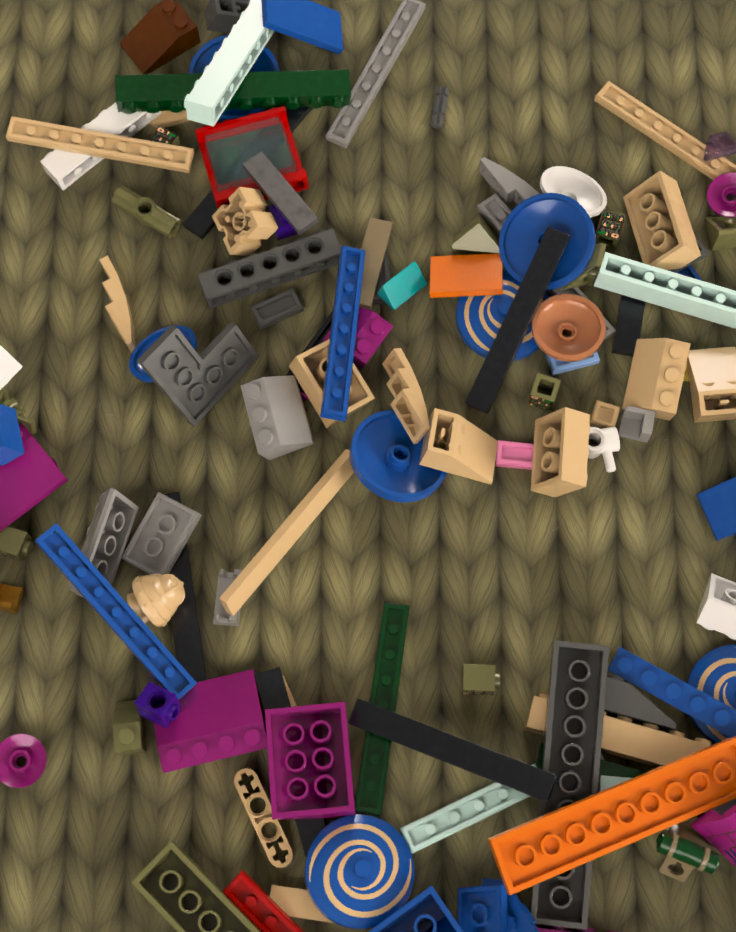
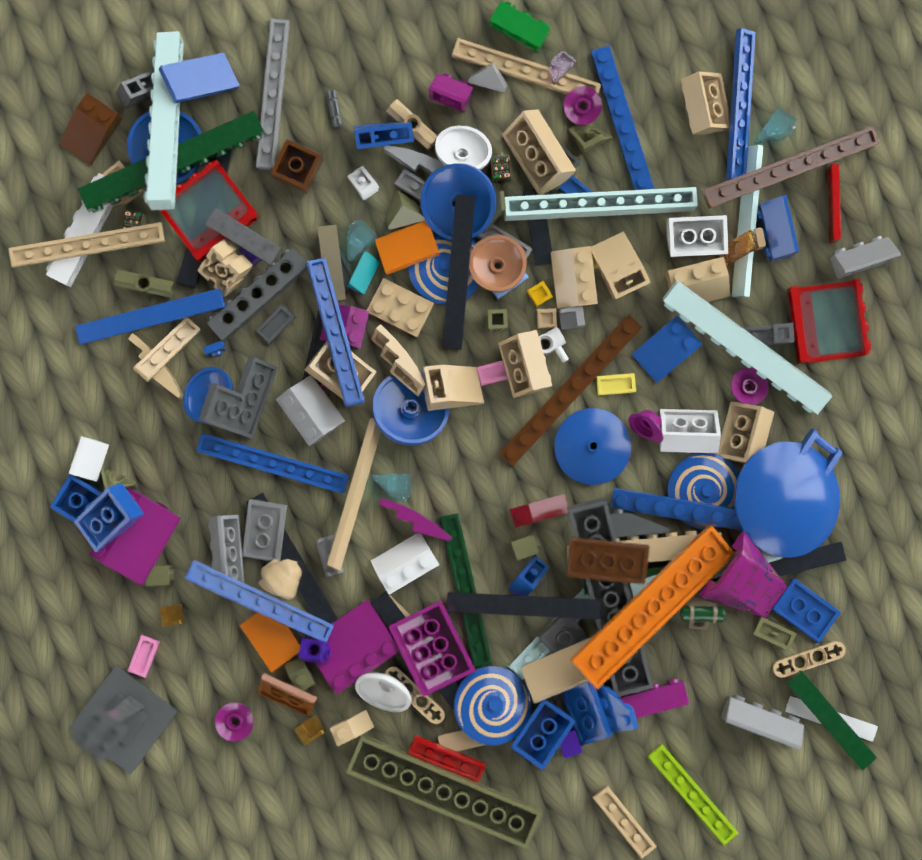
camera: 20 degrees left, 15 degrees up
(99, 750) = (286, 695): none -> dark orange tile
(110, 810) = (310, 730): none -> pearl gold panel
(111, 673) = (271, 640): none -> orange tile
(137, 247) = (150, 316): none -> blue tile
(138, 287) = (167, 349): none -> tan tile
(164, 827) = (351, 727): none -> tan slope
(194, 308) = (215, 349): none -> blue plate
(207, 463) = (272, 463): none -> blue plate
(224, 794) = (383, 692): none -> white dish
(318, 643) = (404, 563): none -> white slope
(344, 541) = (395, 485): none -> clear light blue slope
(357, 598) = (421, 523): none -> magenta slope
(372, 147) = (296, 166): none -> reddish brown brick
(413, 246) = (358, 239): none -> clear light blue slope
(431, 342) = (400, 307): none -> tan plate
(442, 194) = (363, 183): none -> white slope
(456, 858) = (553, 673): none -> tan tile
(470, 719) = (529, 577): none -> blue slope
(484, 144) = (383, 134): none -> blue slope
(485, 814) = (562, 634): none -> dark grey tile
(512, 640) = (539, 510): none -> dark red slope
(516, 140) = (421, 132): none -> tan piece
(579, 131) = (450, 92): none -> magenta slope
(584, 727) = (607, 560): none -> reddish brown tile
(603, 510) = (570, 390): none -> reddish brown plate
(603, 609) = (574, 450): none -> blue dish
(606, 384) = (539, 293): none -> yellow tile
(631, 129) = (490, 78): none -> light grey slope
(665, 523) = (616, 384): none -> light yellow tile
(685, 91) = (520, 26): none -> green brick
(688, 584) = (647, 425): none -> magenta piece

